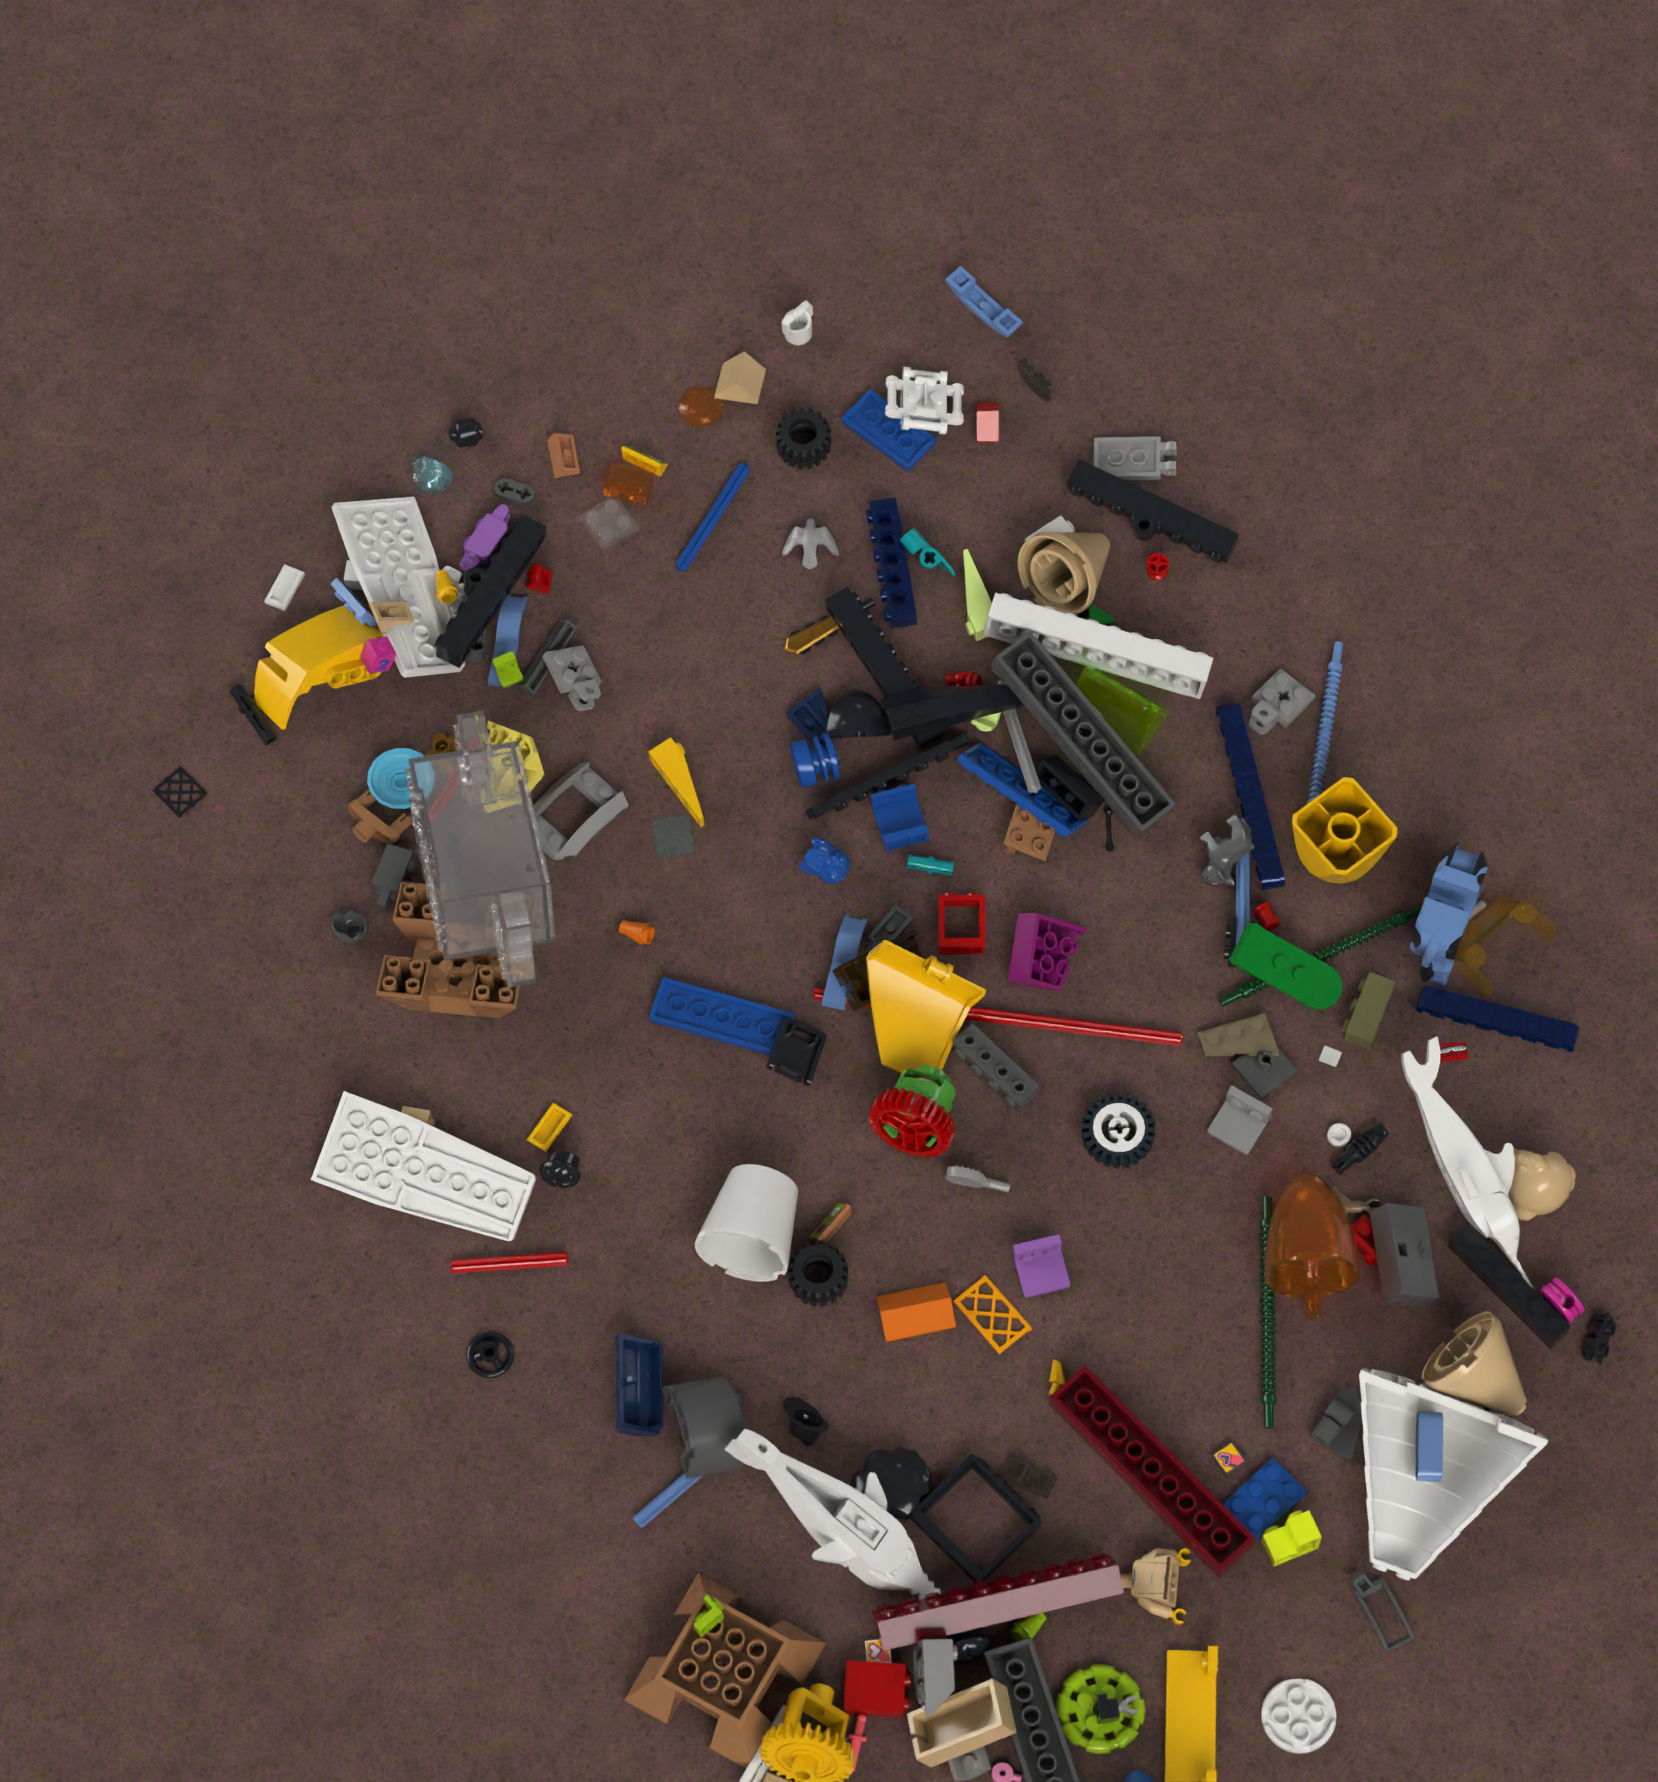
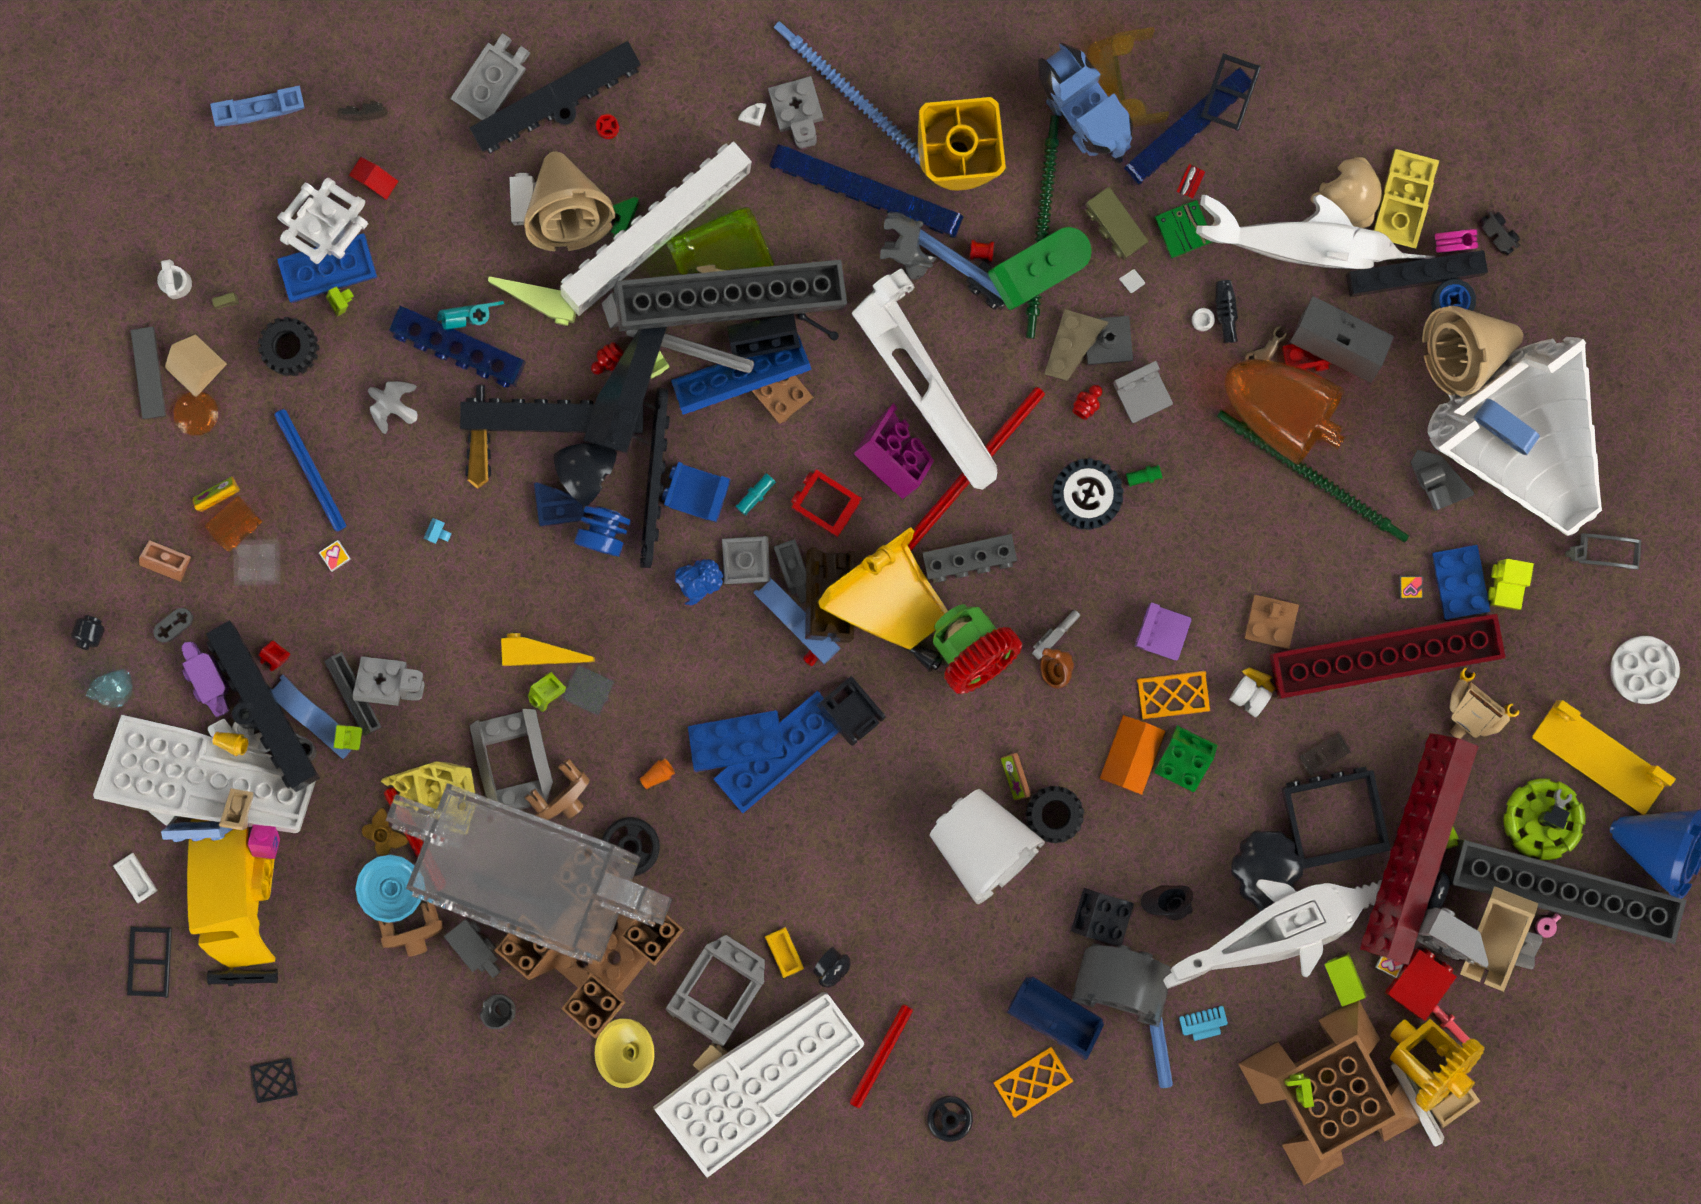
camera: 60 degrees left, 20 degrees up
(213, 626) = (166, 962): none -> black window
(378, 1045) = (615, 1057): none -> light yellow dish
(448, 1083) = (701, 1017): none -> light grey wedge
(565, 1386) = (1015, 1075): none -> light orange window
(566, 873) = (567, 800): none -> medium nougat connector
(579, 939) = (634, 826): none -> black wheel
(649, 801) = (545, 691): none -> lime bracket
(654, 577) = (334, 555): none -> tile
(707, 974) = (735, 741): none -> blue plate
(710, 354) = (148, 373): none -> dark grey tile
(712, 1526) = (1204, 1029): none -> medium azure piece
(727, 638) = (435, 531): none -> medium azure tile
(754, 1374) = (1102, 917): none -> black bracket
(808, 372) = (225, 301): none -> olive tile
(836, 1619) = (1345, 979): none -> lime hinge
(868, 891) = (746, 560): none -> light grey tile
(869, 454) = (339, 300): none -> lime tile
(884, 1081) = (928, 658): none -> black cone
(942, 1356) = (1186, 759): none -> green bracket
(953, 1196) = (1059, 667): none -> dark orange hat
(1035, 1373) = (1250, 696): none -> white wheel
(1114, 1356) = (1271, 621): none -> medium nougat hinge
(1145, 883) = (890, 330): none -> white panel
(1171, 1171) = (1144, 475): none -> green pin
(1196, 1083) = (1087, 403): none -> red piece
(1250, 671) = (753, 114): none -> white tile
(1391, 1070) = (1179, 229): none -> green tile
(1521, 1331) = (1453, 288): none -> wheel
(1545, 1014) = (1215, 86): none -> black window
(1568, 1238) = (1406, 197): none -> light yellow slope

